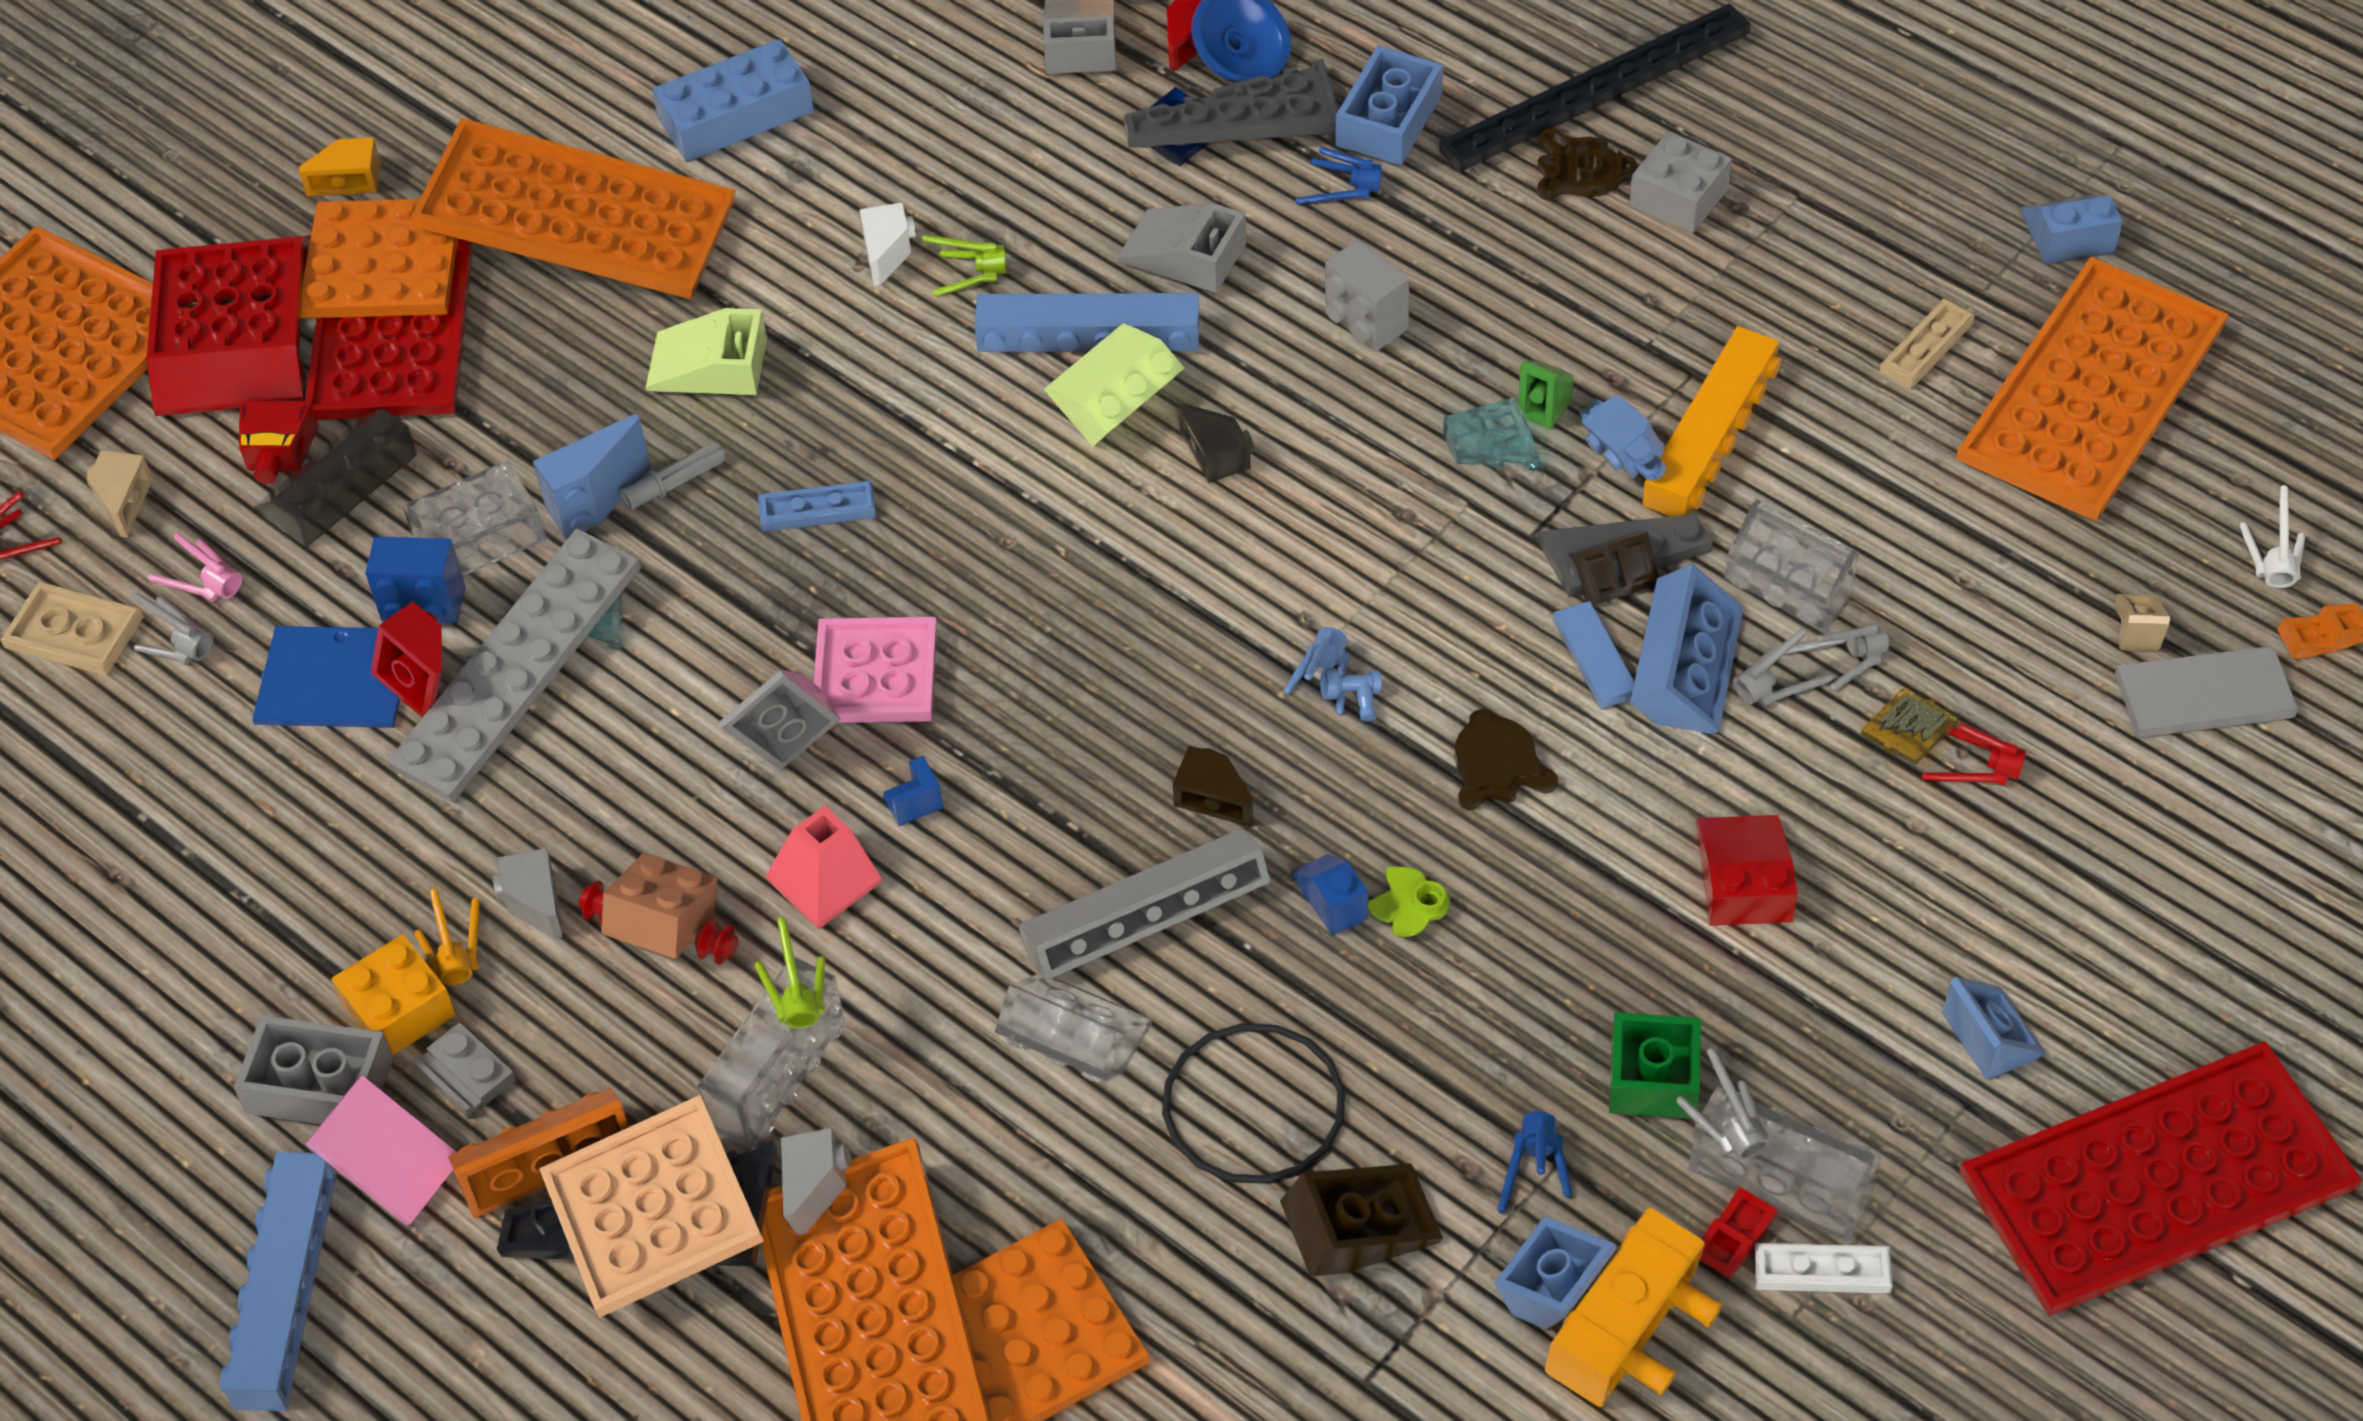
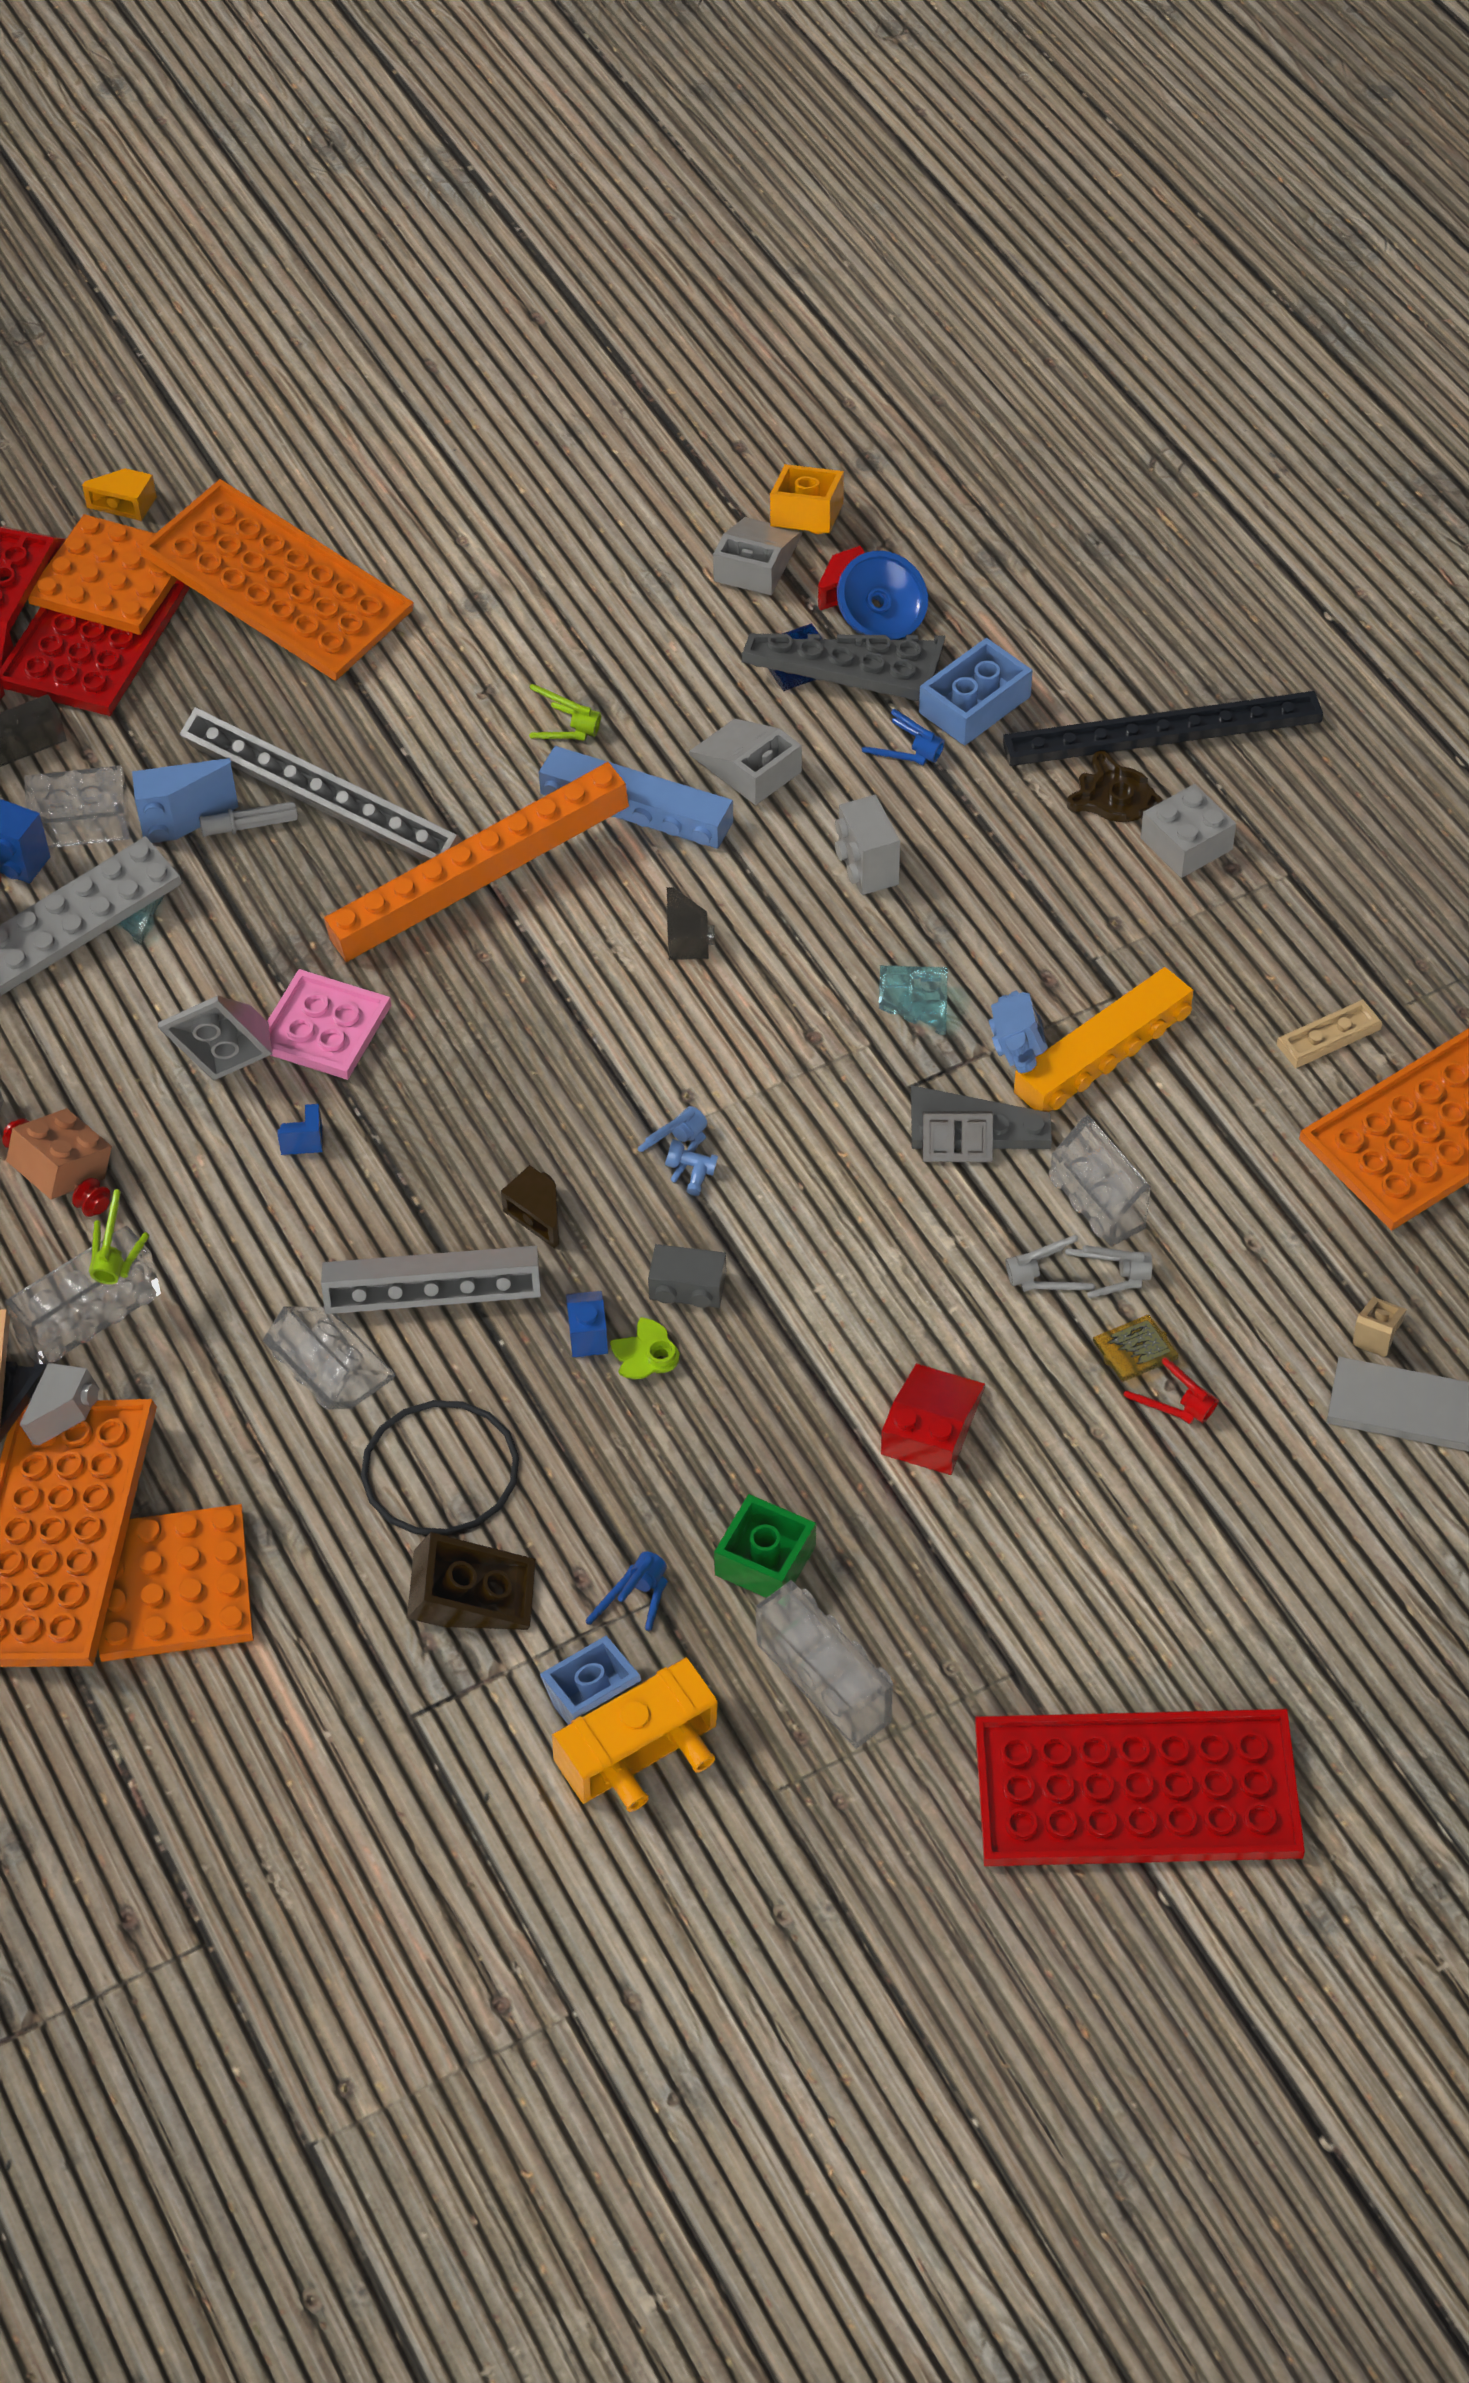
camera: 20 degrees right, 0 degrees up
(710, 354) = (327, 730): yellowish green slope -> none
(733, 100) = (448, 528): medium blue brick -> none
(748, 419) = (317, 787): none -> light grey brick
(816, 506) = (342, 876): medium blue tile -> none
(822, 868) = (199, 1167): coral slope -> none
(886, 238) = (510, 679): white slope -> none
(958, 443) = (476, 862): none -> orange brick
(1113, 381) = (627, 852): yellowish green slope -> none
(1414, 807) = (687, 1276): none -> dark grey brick
(1495, 759) = (778, 1259): dark brown tile -> none
(1544, 392) = (975, 970): bright green slope -> none
(1594, 654) = (905, 1202): medium blue tile -> none
(1687, 652) = (979, 1225): medium blue slope -> none
(1736, 1231) = (763, 1709): red slope -> none
(1744, 1131) = (786, 1626): light grey plant -> none
(1822, 1268) = (820, 1760): white tile -> none
(1989, 1027) = (1065, 1615): medium blue slope -> none

